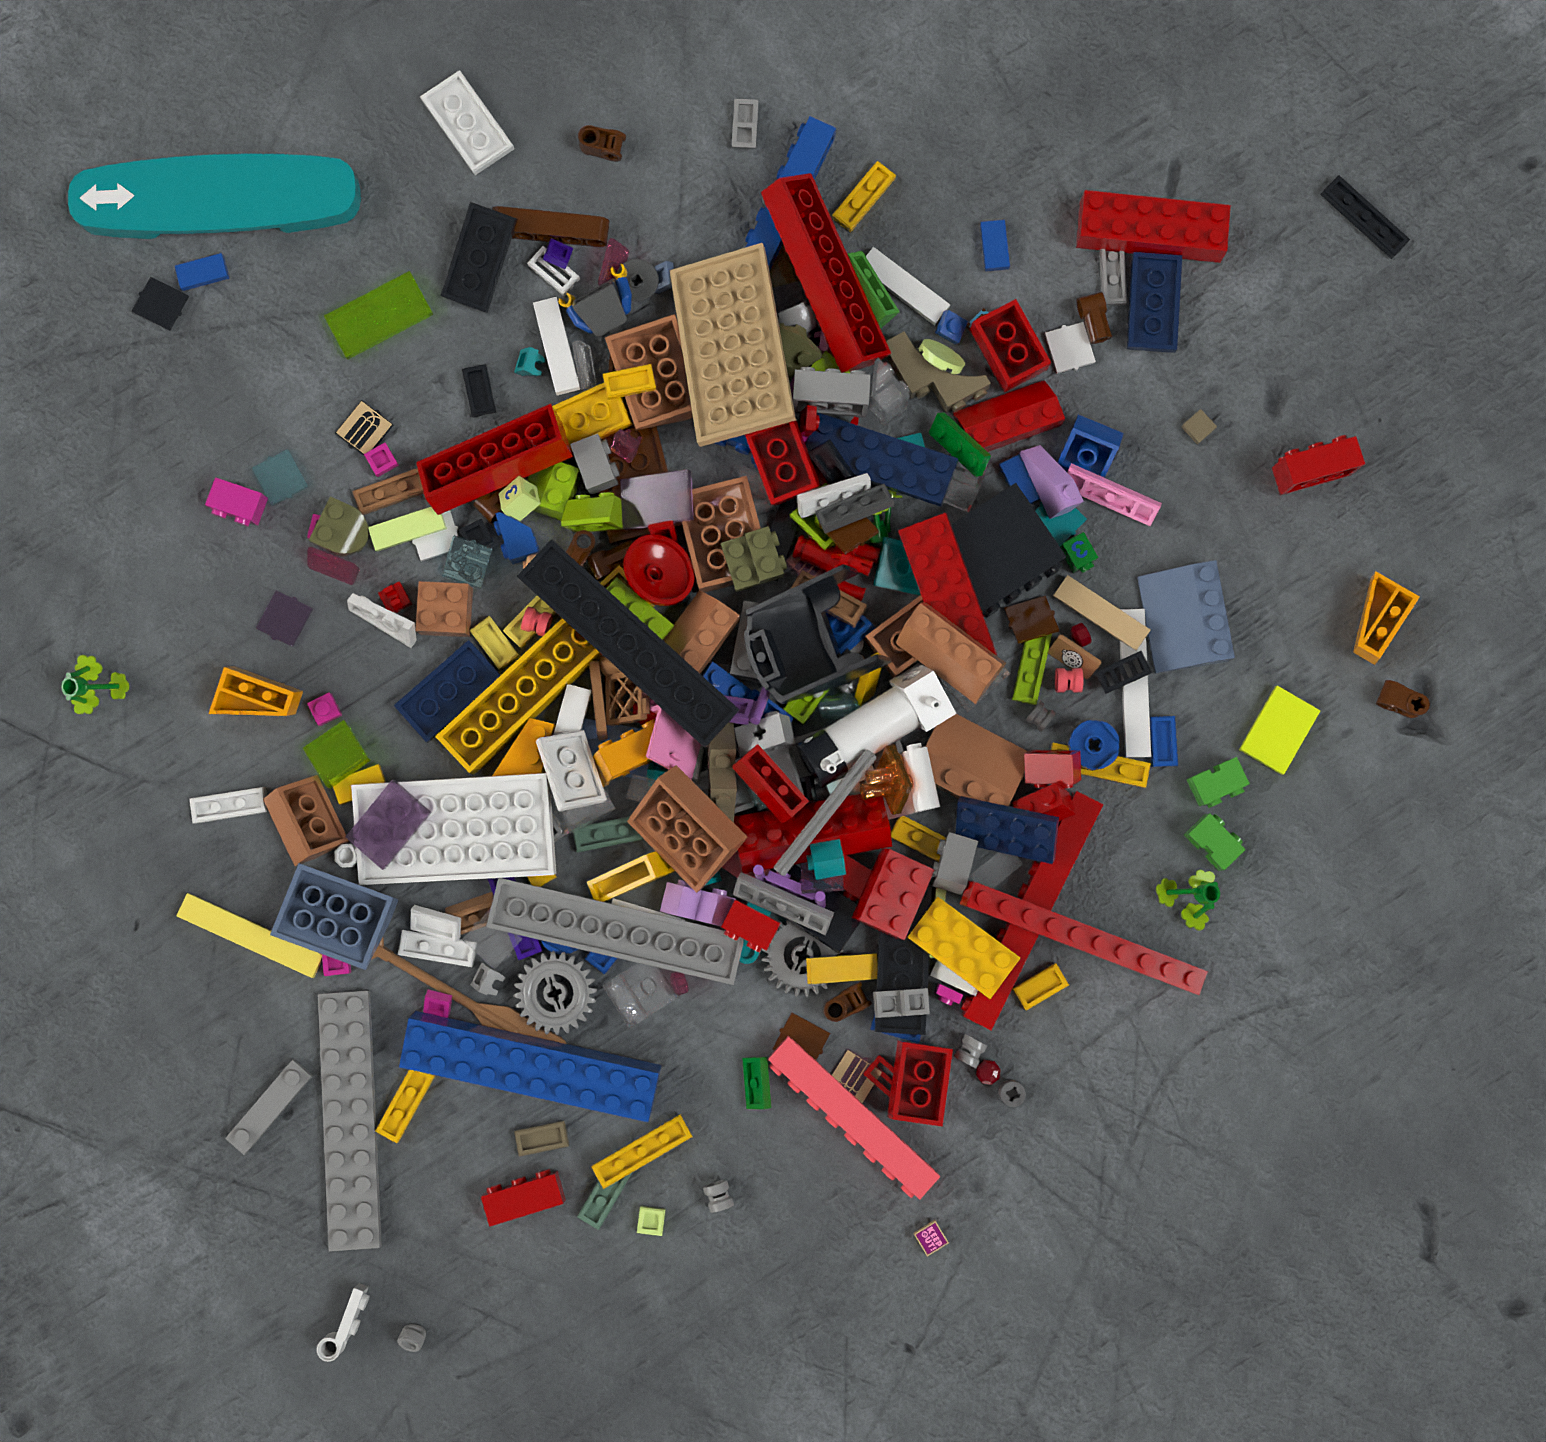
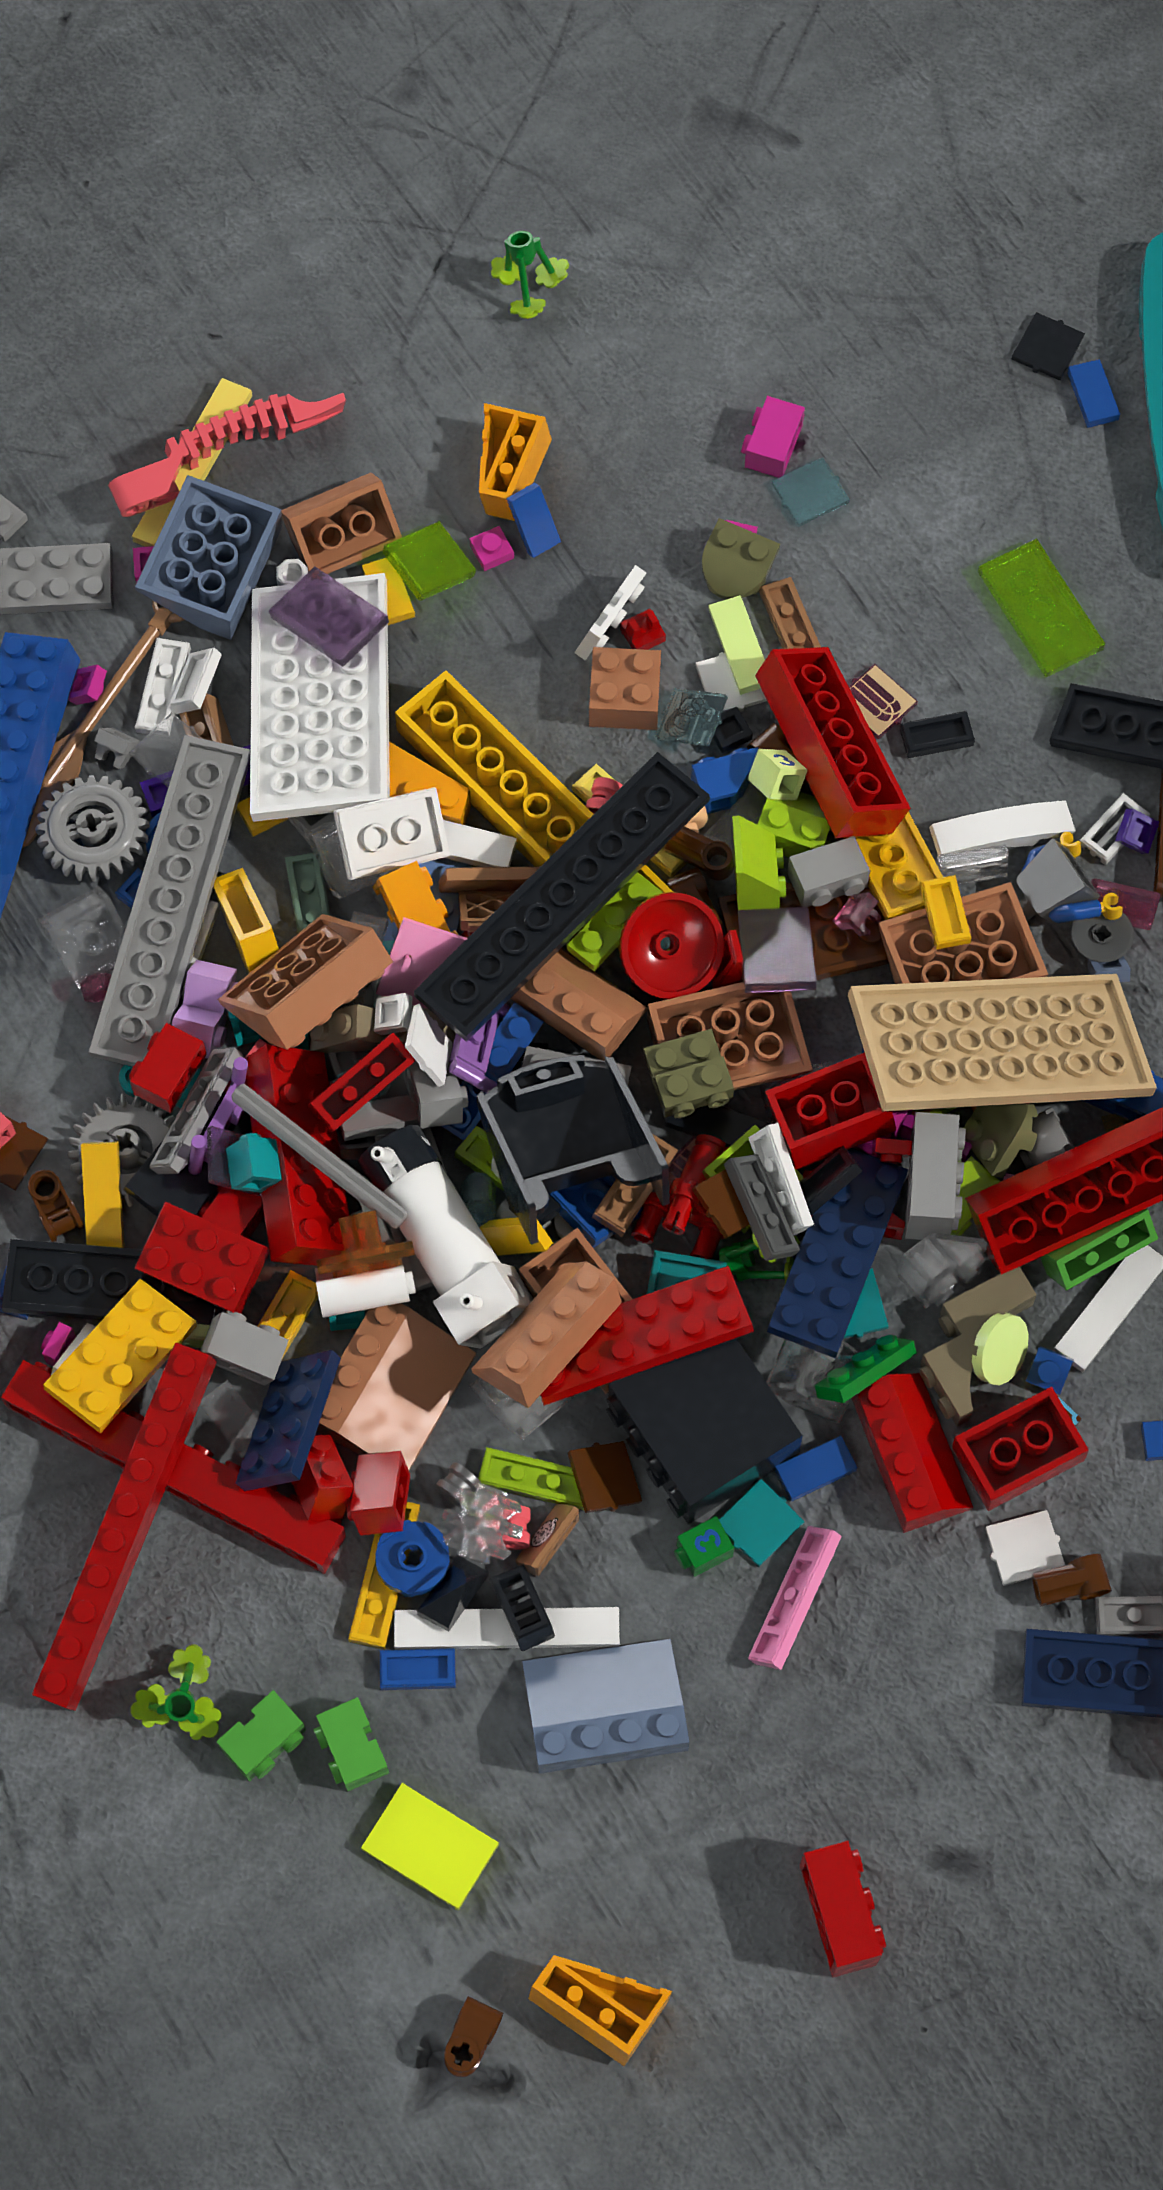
camera: 90 degrees right, 15 degrees down
(228, 805) = (366, 435): white tile -> none
(270, 958) = (156, 482): none -> coral piece
(284, 618) = (616, 499): clear purple piece -> none
(306, 676) = (533, 520): none -> blue tile
(332, 565) = (688, 554): clear pink slope -> none
(364, 428) = (879, 592): piece -> none
(381, 459) = (835, 611): dark pink plate -> none
(447, 691) = (514, 693): dark blue plate -> none
(450, 429) = (881, 700): none -> piece
(494, 643) = (580, 754): light yellow tile -> none
(526, 362) = (973, 789): teal tile -> none
(716, 763) = (393, 1013): none -> white tile
(742, 737) = (428, 1045): none -> white piece
(901, 1003) = (48, 1272): light grey slope -> none
(1040, 986) = (62, 1480): yellow tile -> none
(1052, 482) = (814, 1505): lavender slope -> none
(1073, 697) = (482, 1523): none -> clear gear
(1081, 635) = (579, 1547): dark red tile -> none
(1090, 446) = (867, 1567): blue slope -> none
(1101, 613) = (612, 1578): tan tile -> none
(1120, 719) = (453, 1594): none -> black slope
(1199, 426) = (905, 1738): dark tan tile -> none

